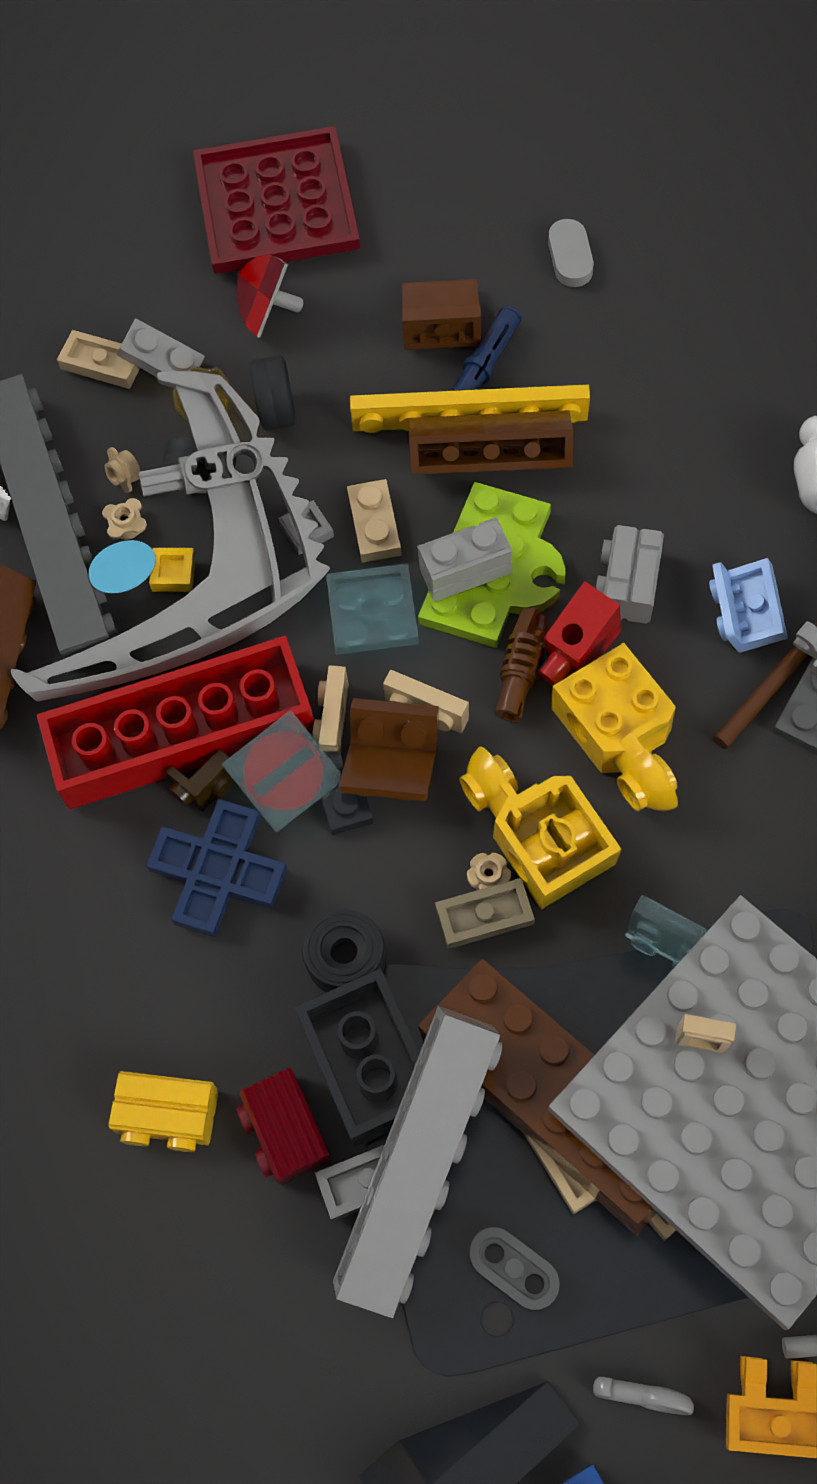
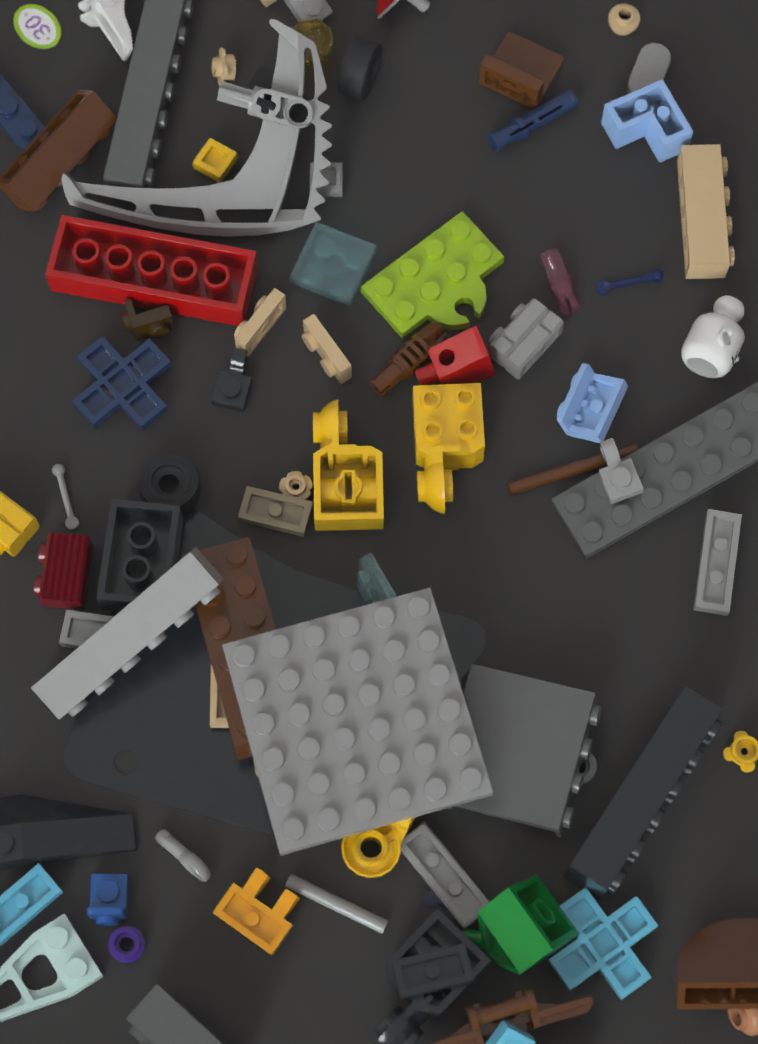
camera: 25 degrees right, 5 degrees up
(121, 566) = (180, 140): medium azure sticker -> none
(127, 528) = (206, 113): tan plate -> none
(254, 1062) = (72, 523): none -> light grey hinge
(283, 771) = (201, 343): clear light blue piece -> none
(374, 521) = (375, 200): tan plate -> none
(391, 749) = (281, 369): reddish brown bracket -> none
(393, 411) = (493, 154): yellow plate -> none
(465, 559) = (411, 264): light grey brick -> none
(491, 442) = (488, 188): reddish brown brick -> none
(510, 215) = (621, 26): none -> tan plate
(515, 1267) = (154, 738): dark grey plate -> none
(611, 286) = (648, 114): none -> light blue brick
(624, 497) = (559, 280): none -> clear pink axle
(670, 481) = (603, 286): none -> clear blue hinge
(705, 1033) = (341, 654): tan tile -> none
(725, 351) = (704, 211): none -> tan brick

